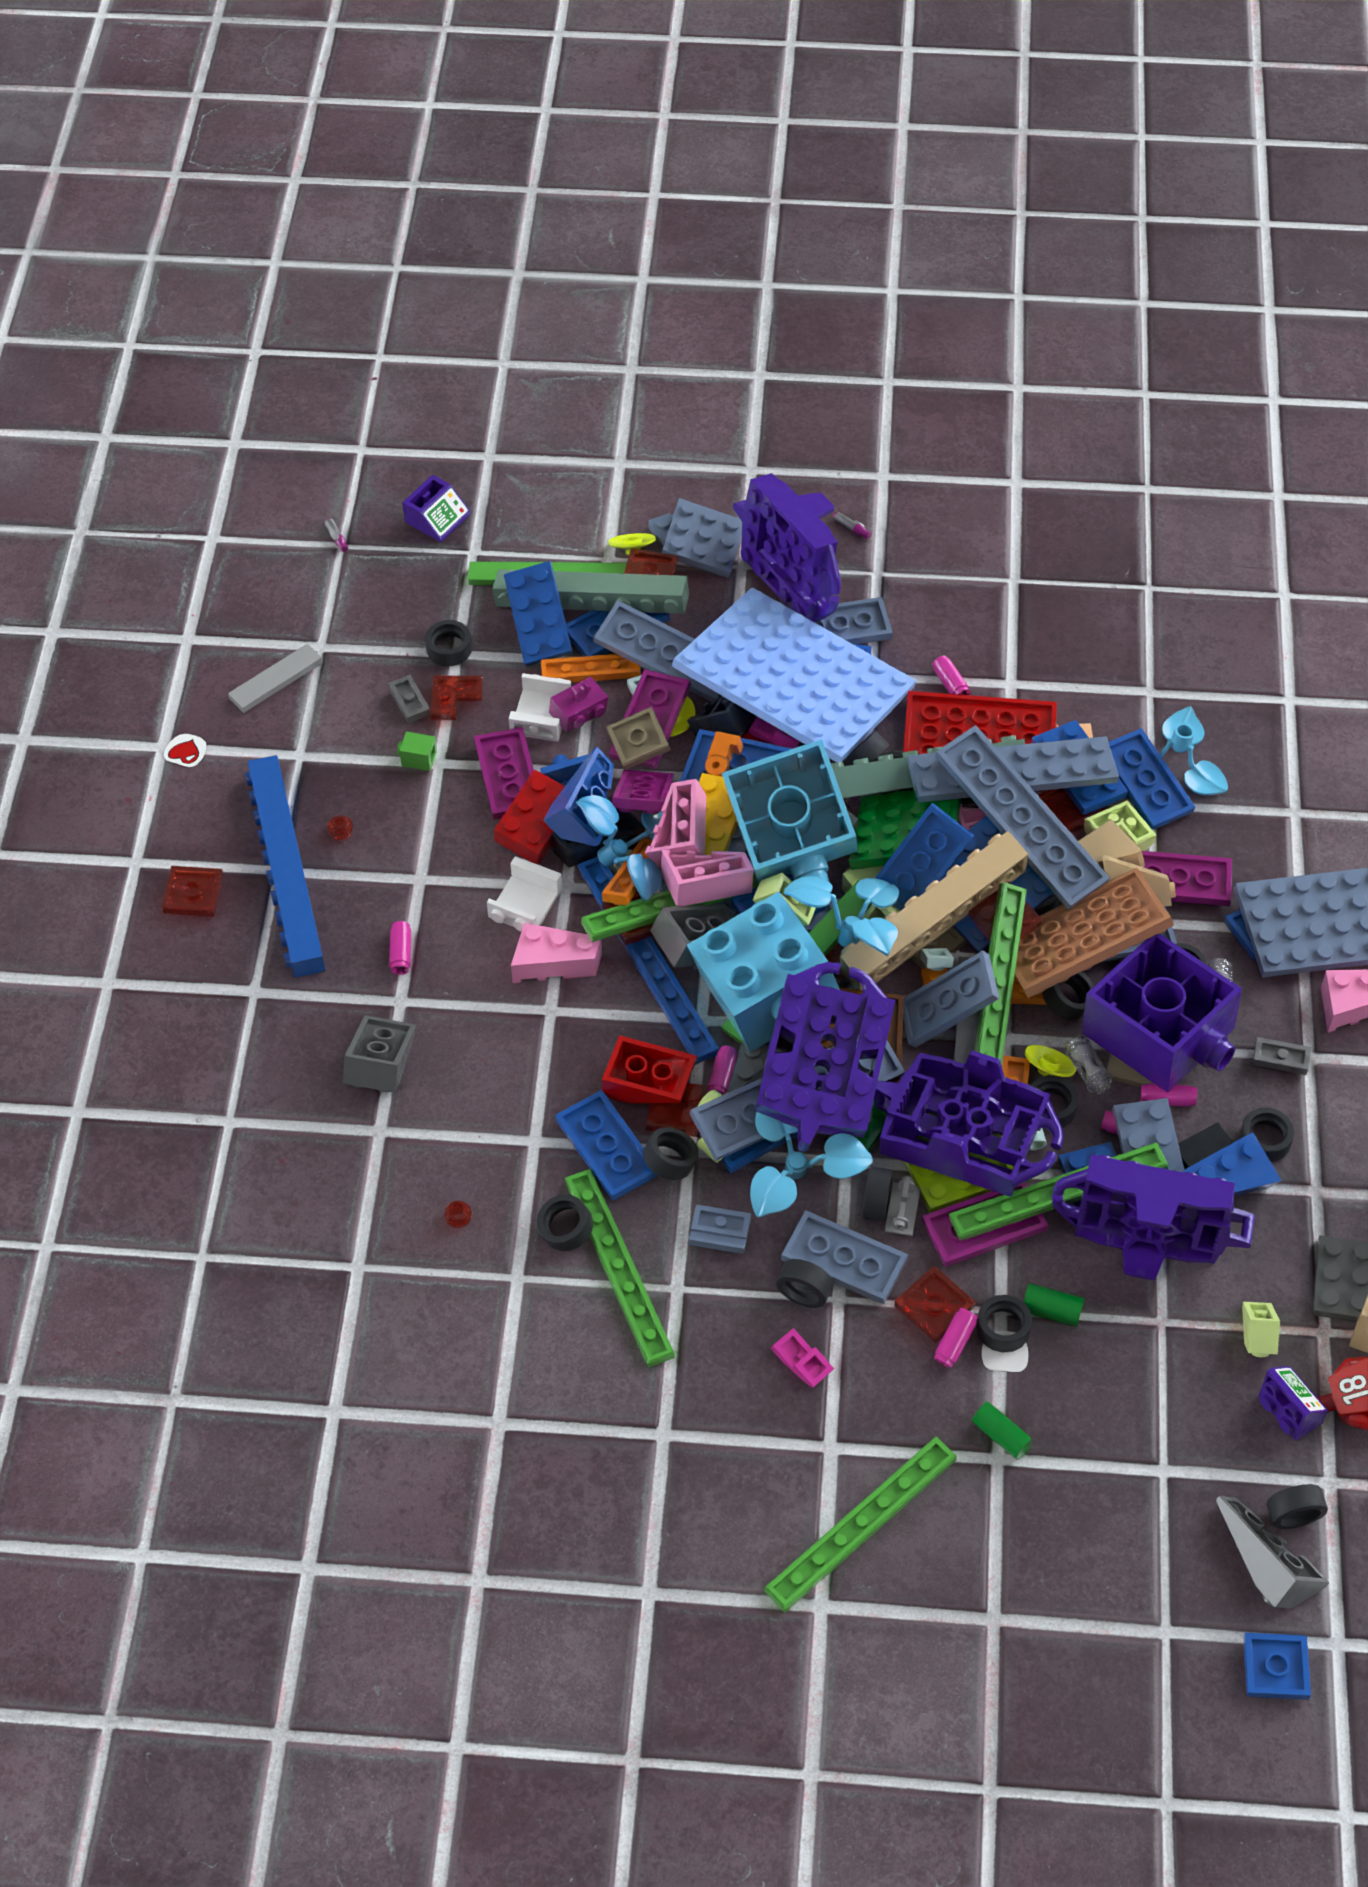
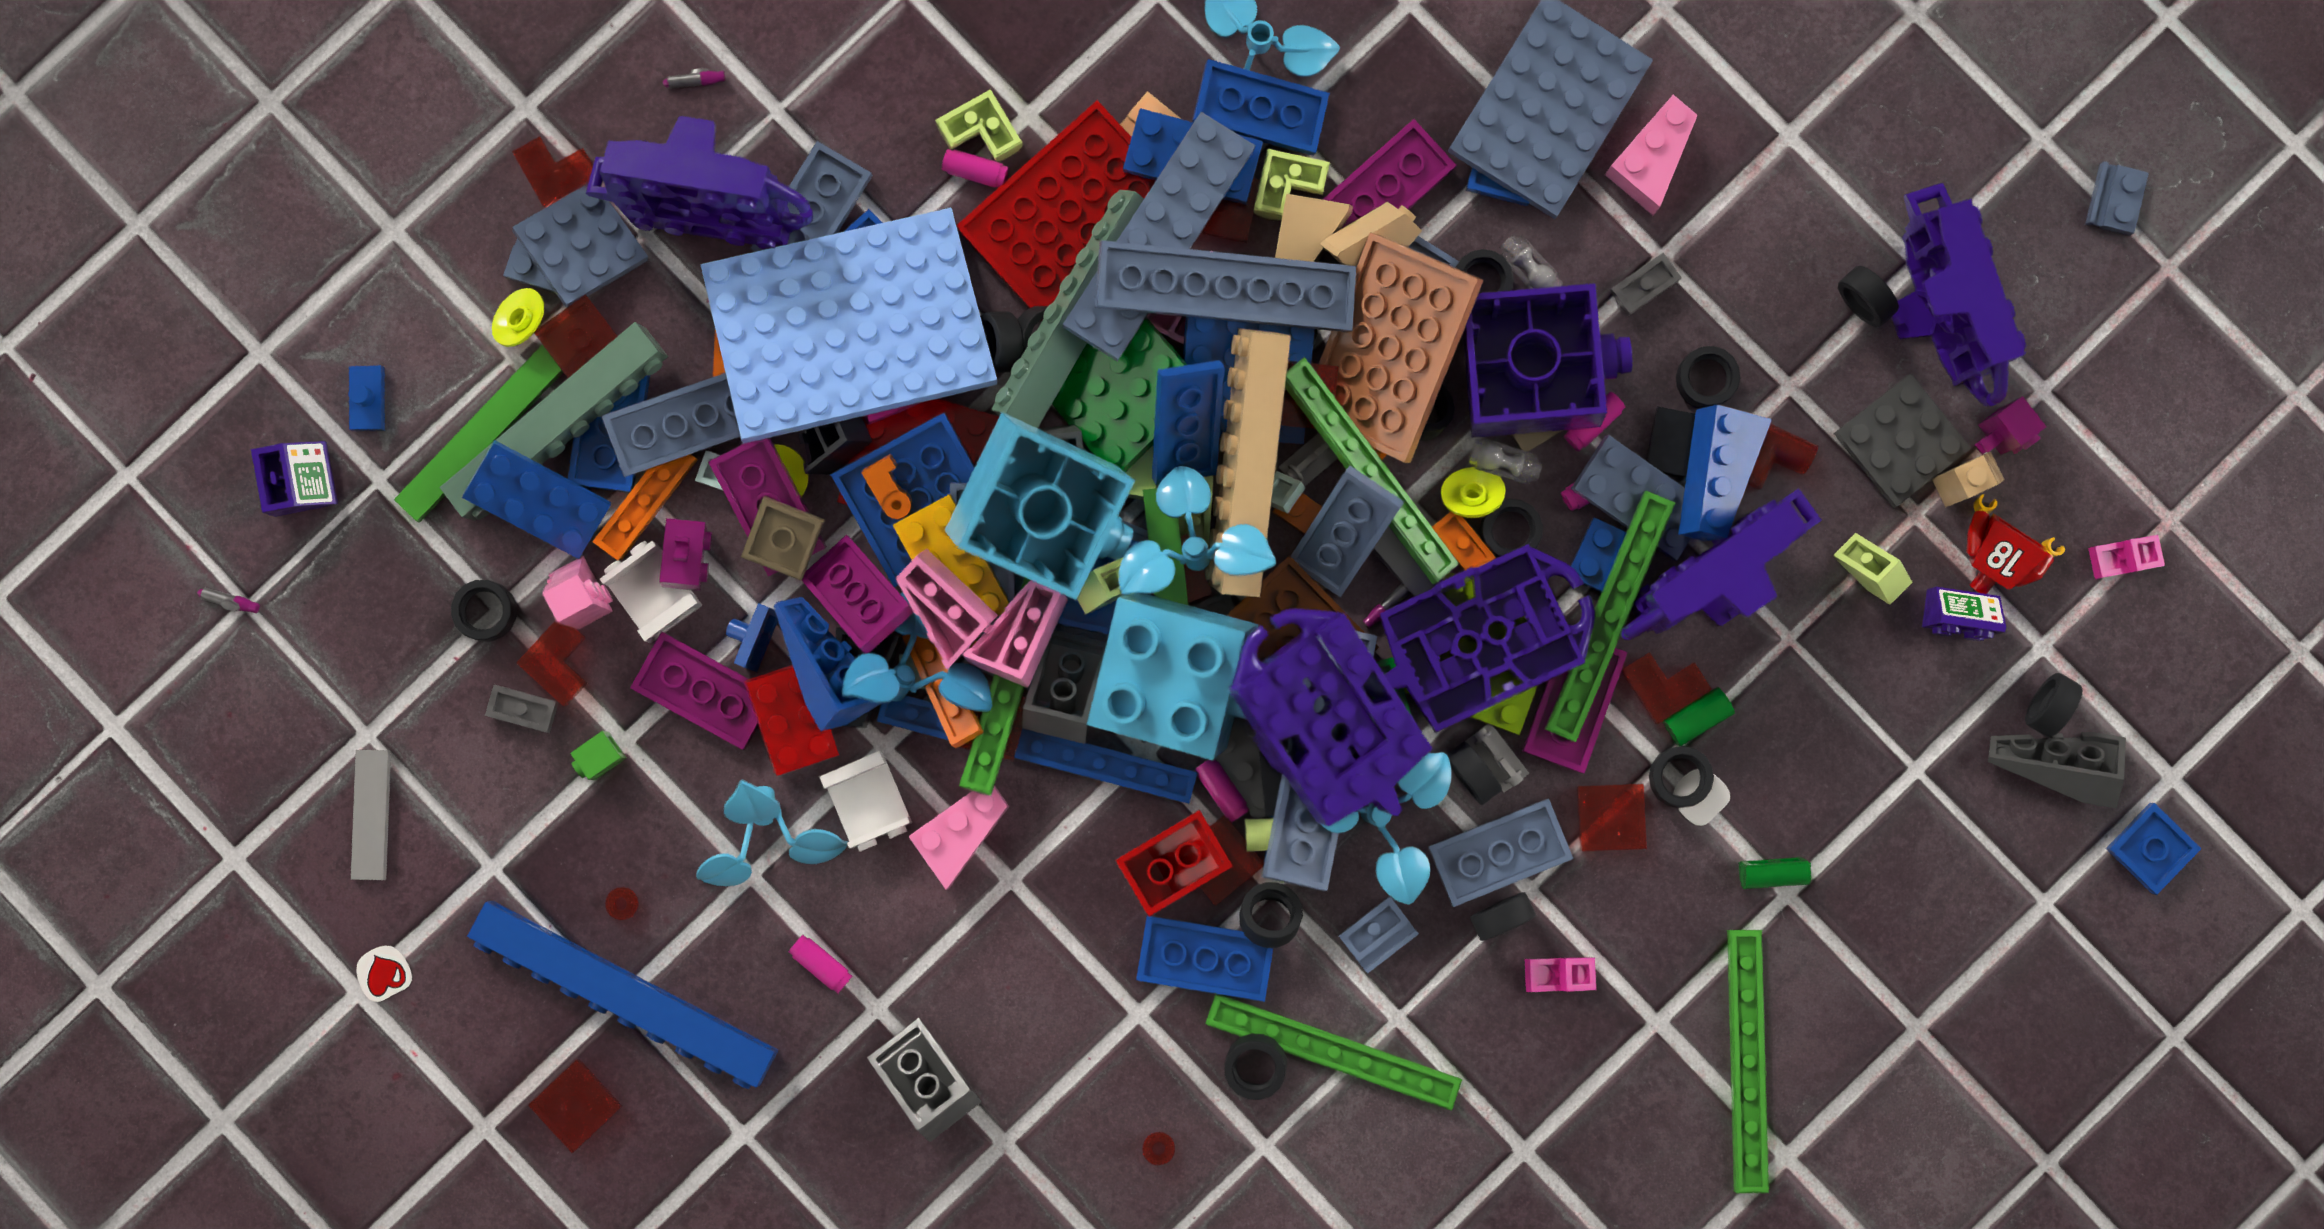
camera: 50 degrees left, 30 degrees up
(464, 819) = (759, 806): none -> medium azure plant
(501, 667) = (576, 595): none -> bright pink wedge
(514, 513) = (366, 398): none -> blue tile
(725, 495) = (550, 178): none -> clear red plate
(955, 1337) = (1661, 832): dark pink piece -> none
(982, 660) = (983, 117): none -> yellowish green brick
(1046, 1271) = (1664, 695): none -> clear red plate
(1271, 1209) = (1784, 450): none -> clear red brick

